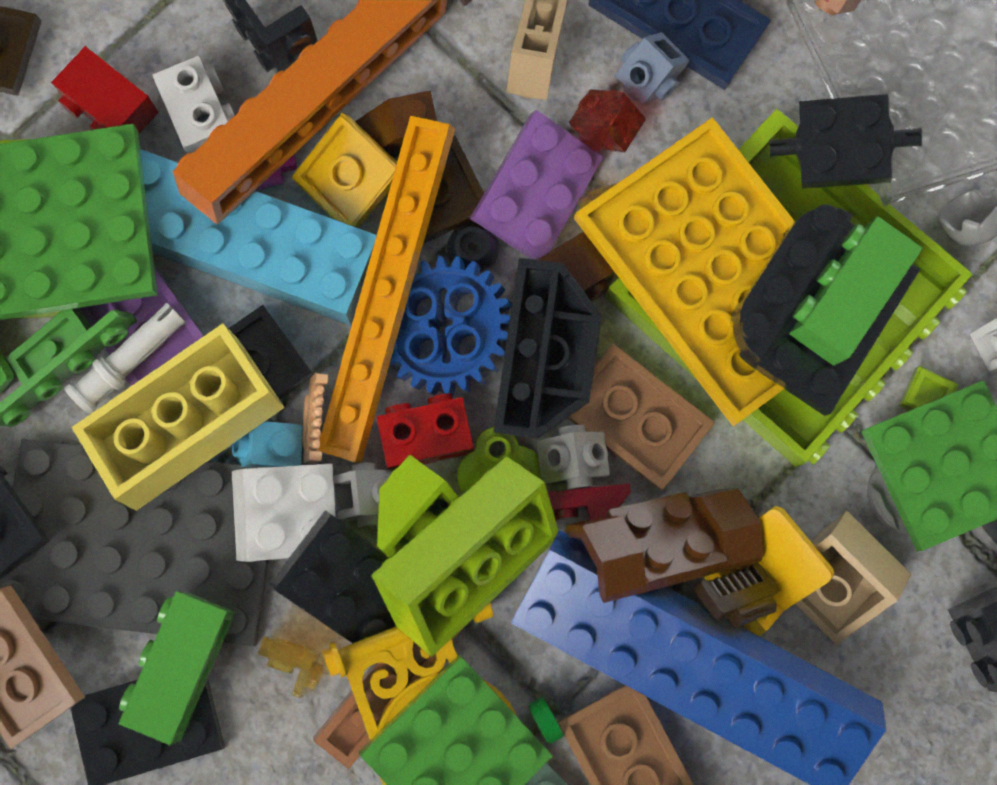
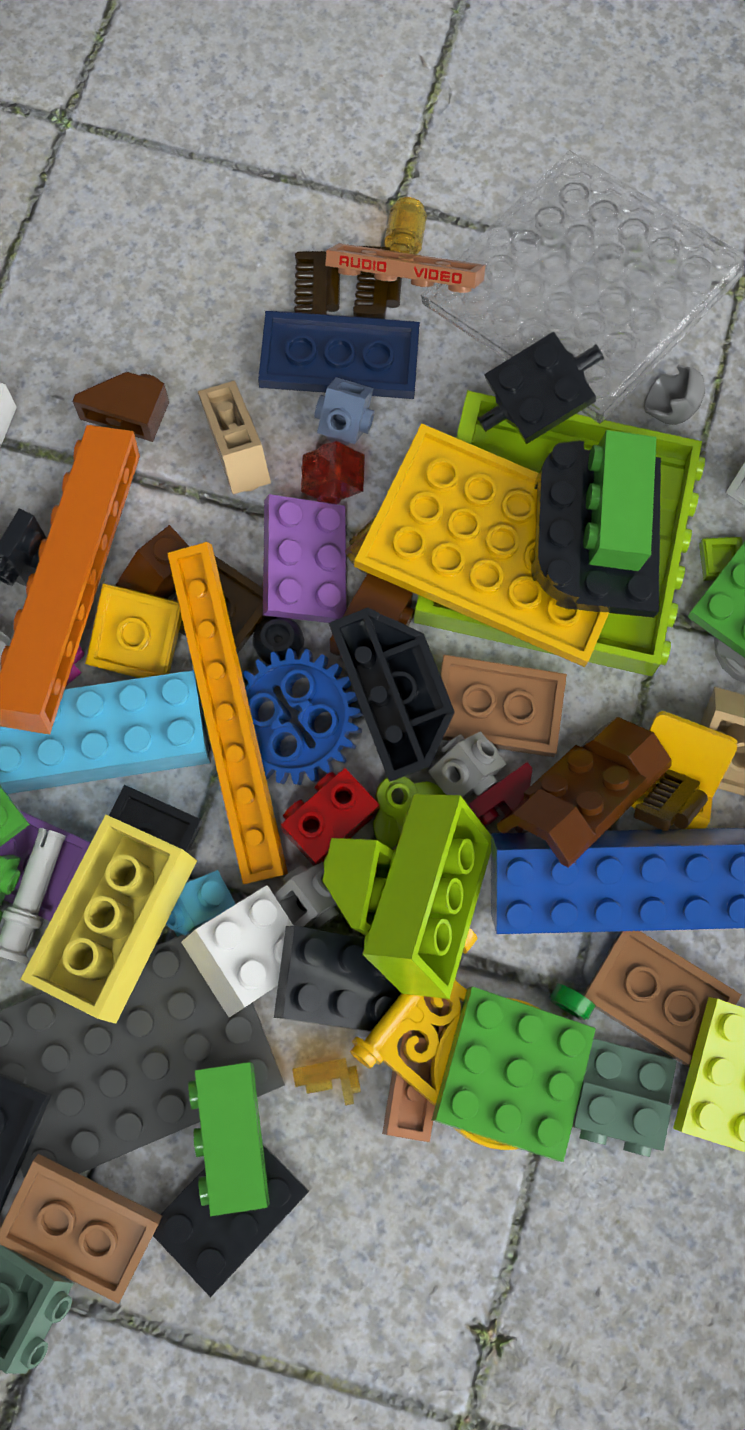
camera: 30 degrees left, 5 degrees down
(312, 419) = (225, 860): light nougat piece -> none

